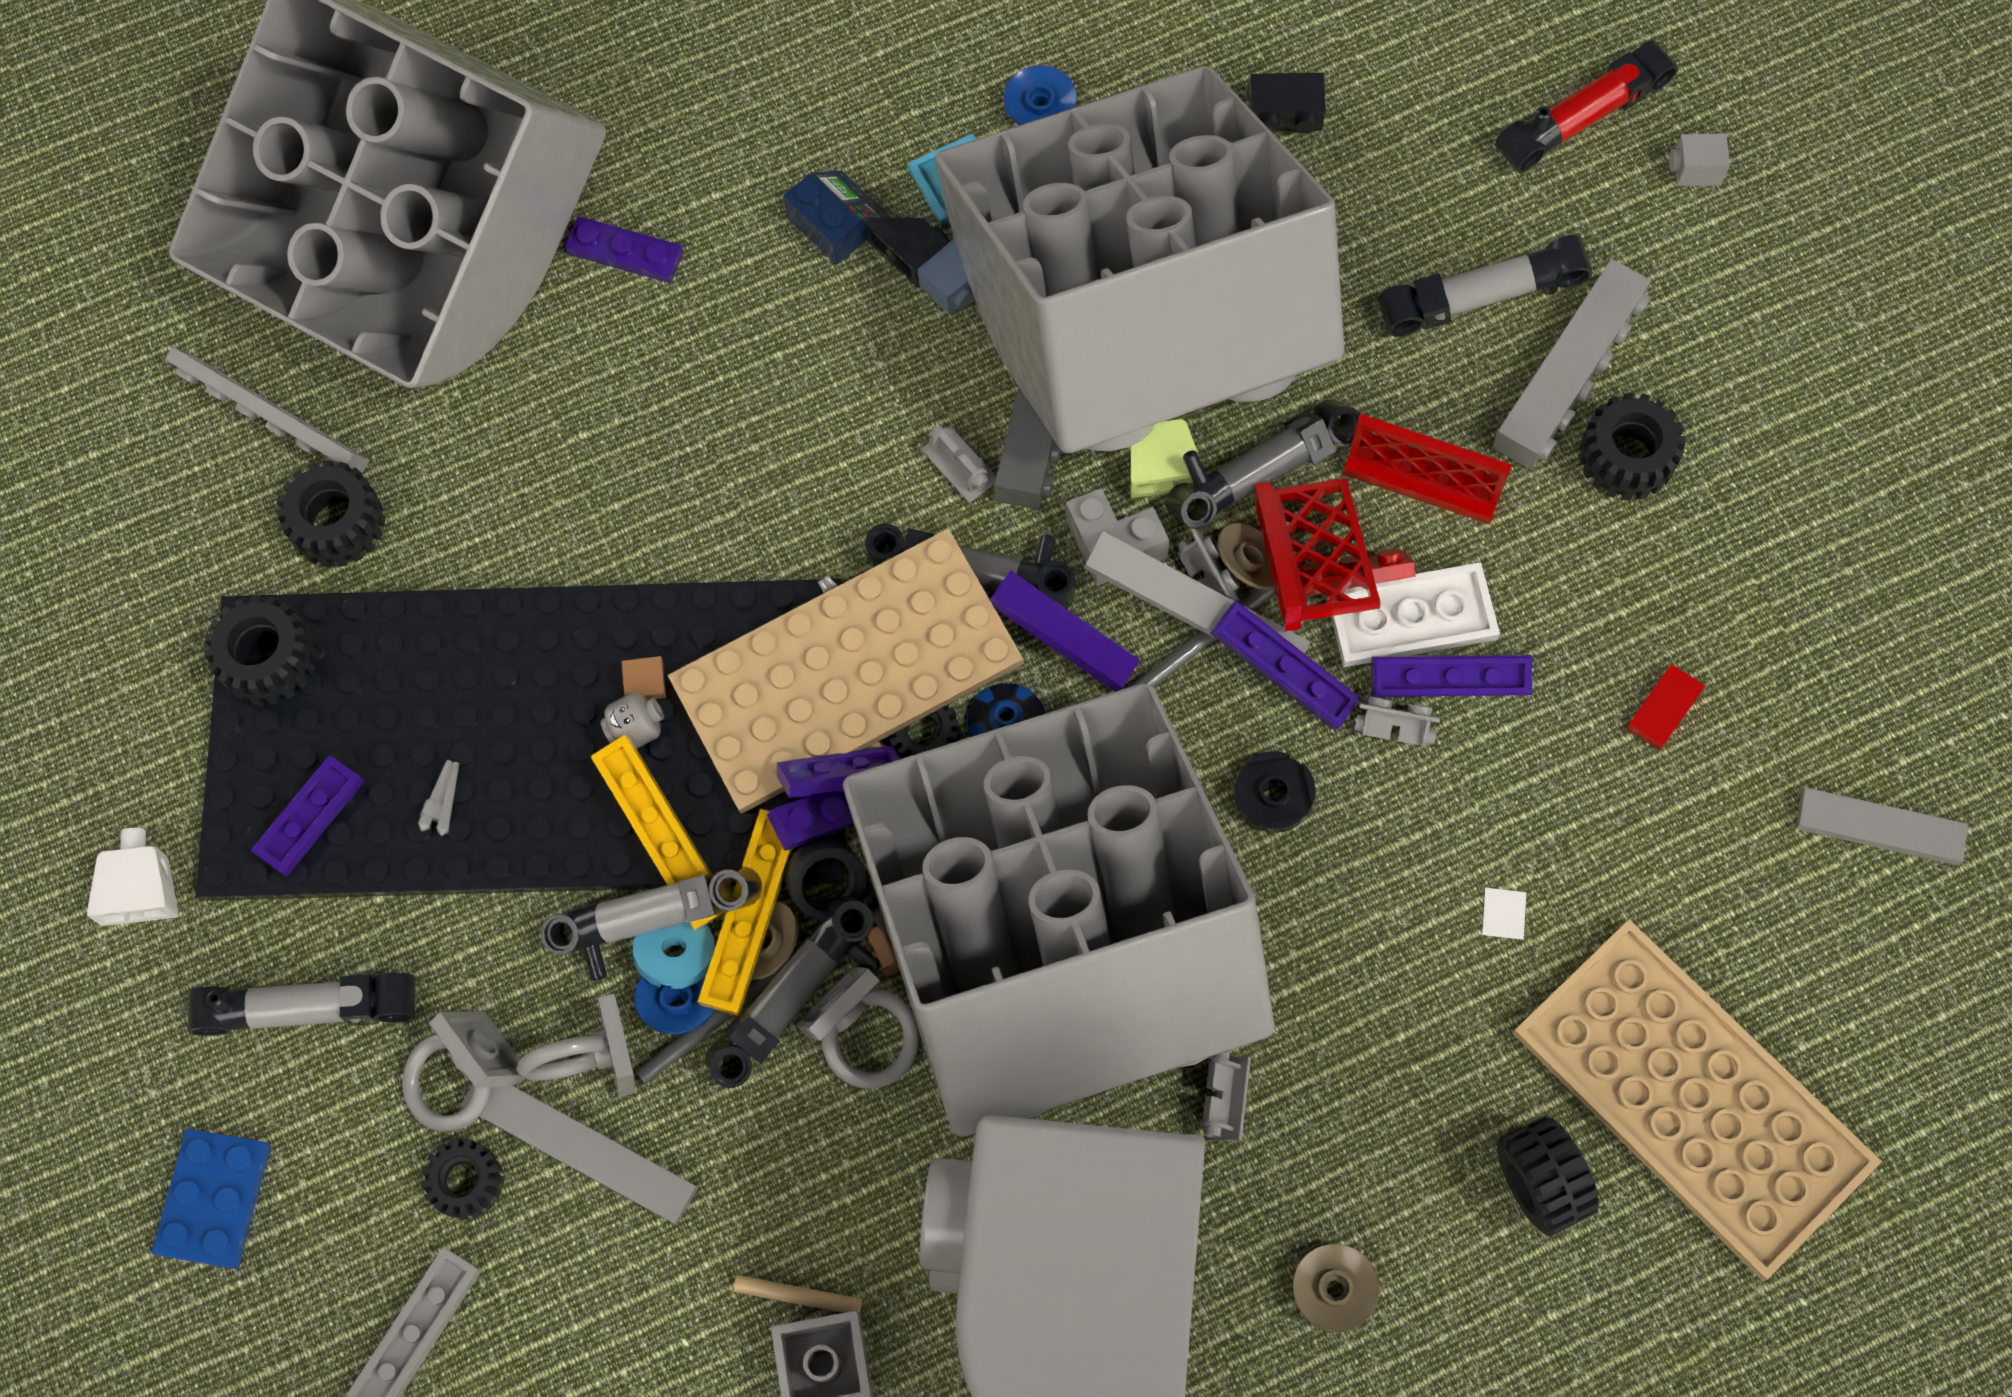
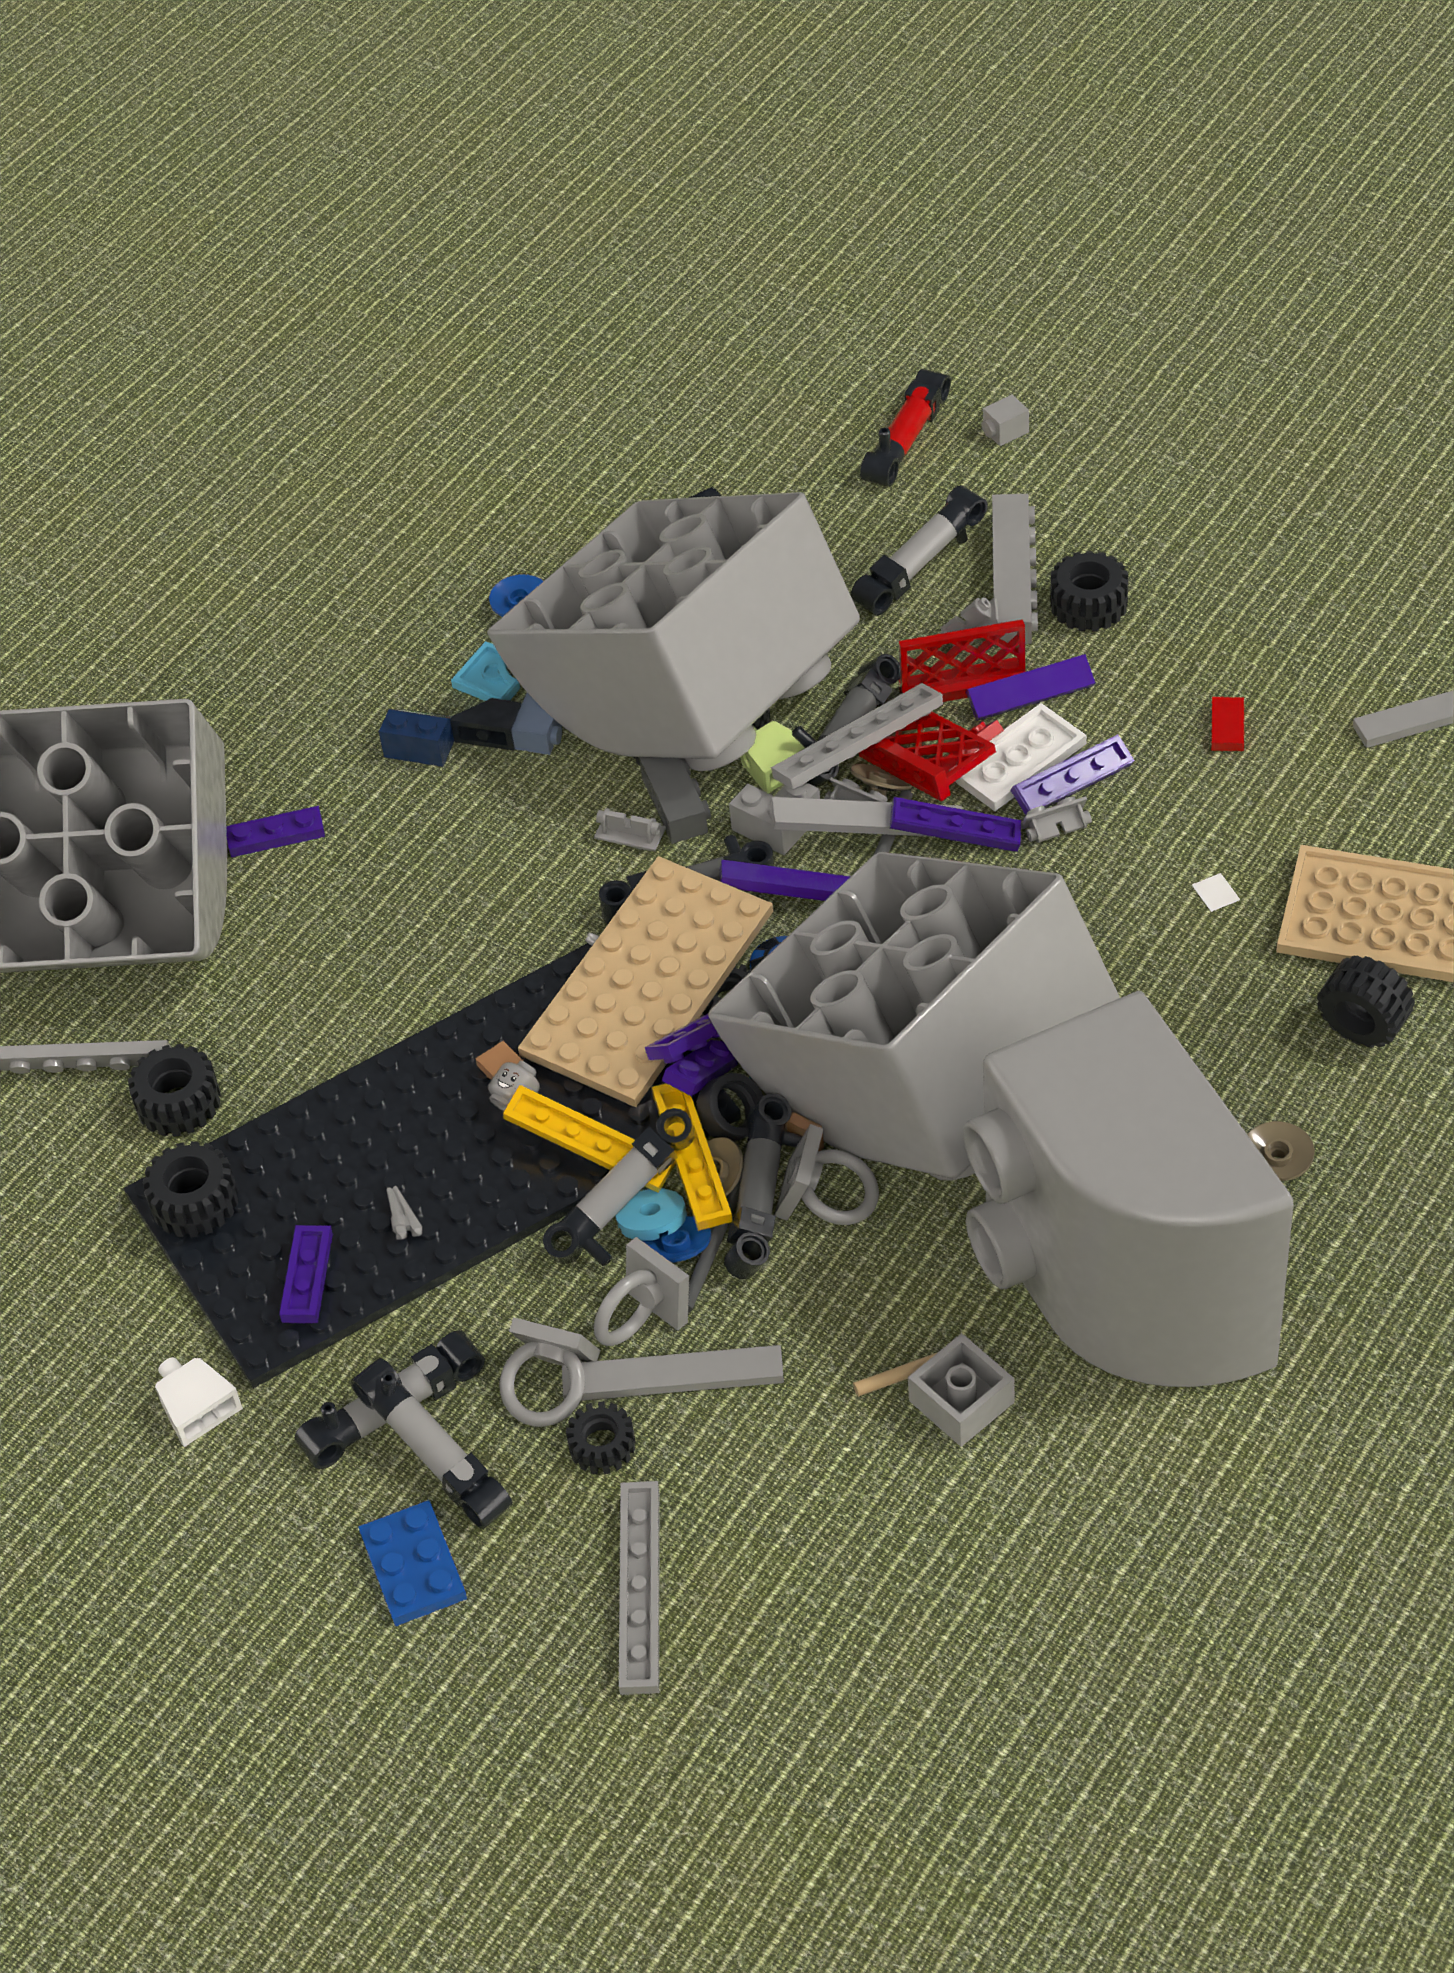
camera: 30 degrees left, 20 degrees down
(304, 1140) = (461, 1474): none -> piece
(1246, 502) = (857, 736): none -> light grey plate
(1473, 418) = (977, 614): none -> light grey hinge
(1486, 533) = (1030, 687): none -> dark purple tile

